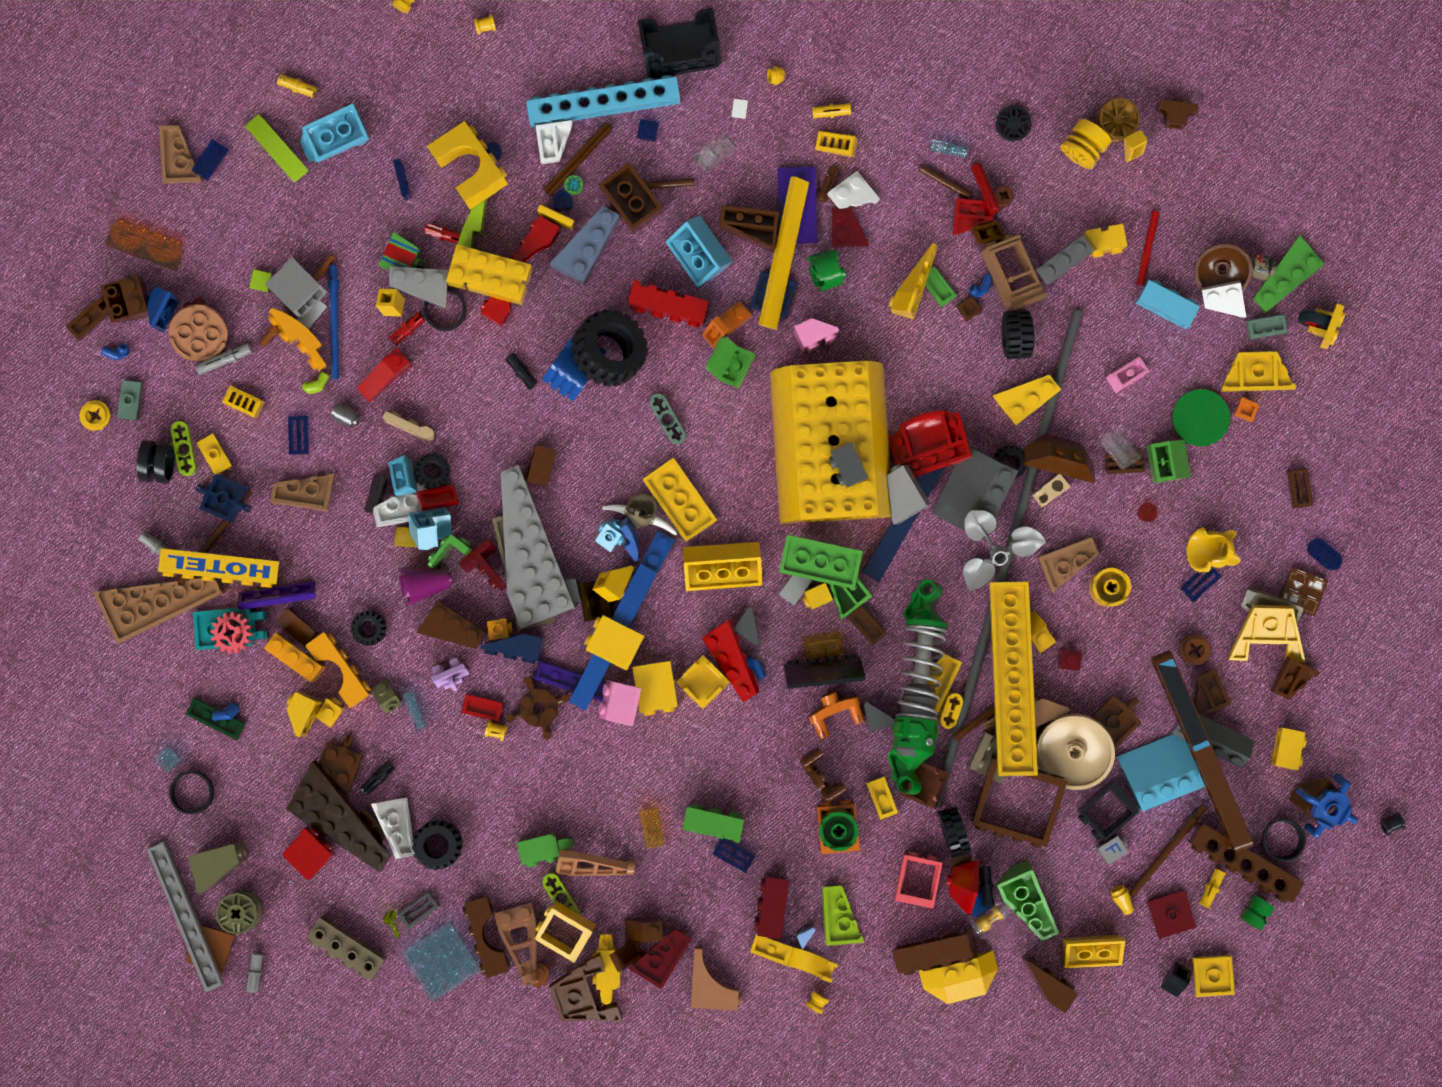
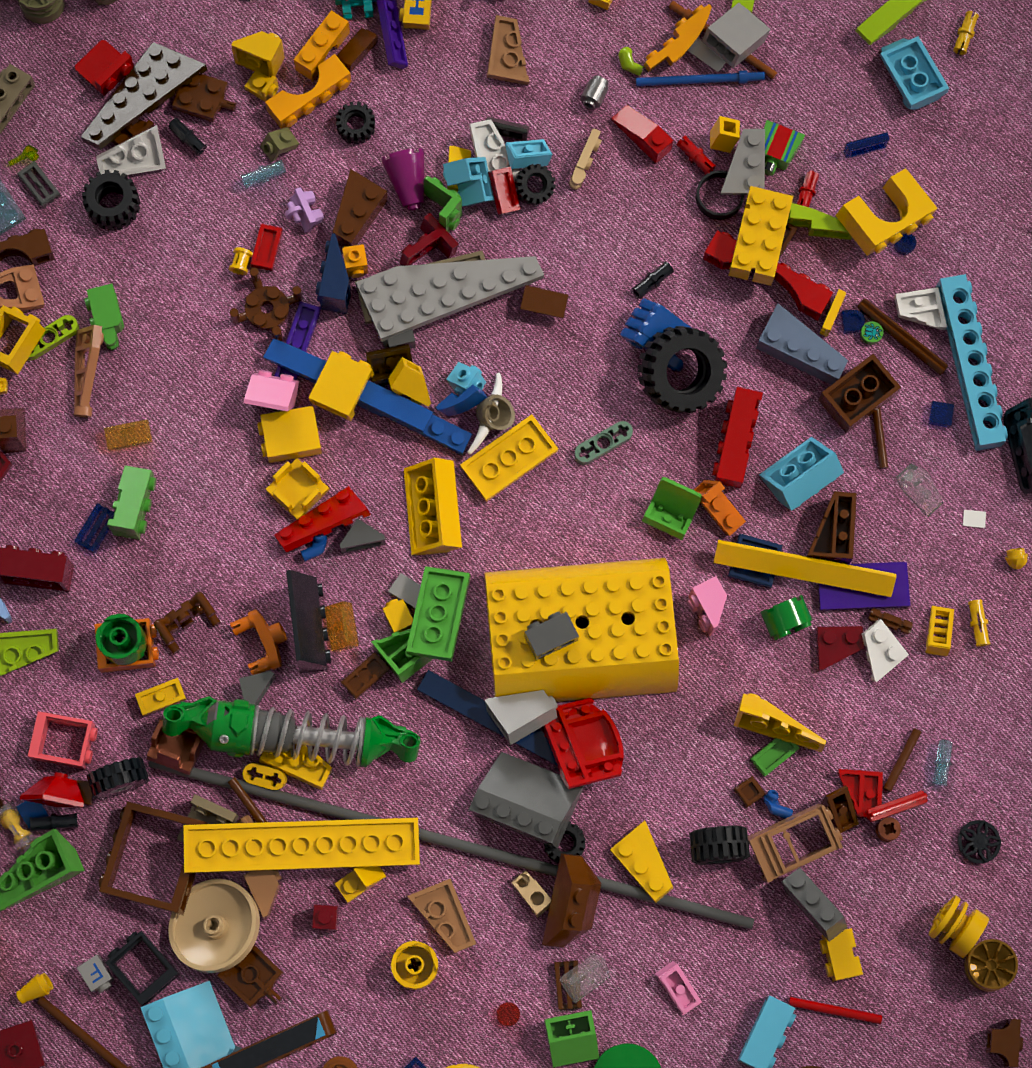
camera: 85 degrees right, 10 degrees down
(299, 451) = (577, 50): clear blue tile -> none
(980, 524) = (430, 807): light grey plant -> none
(1134, 145) = (960, 986): yellow slope -> none

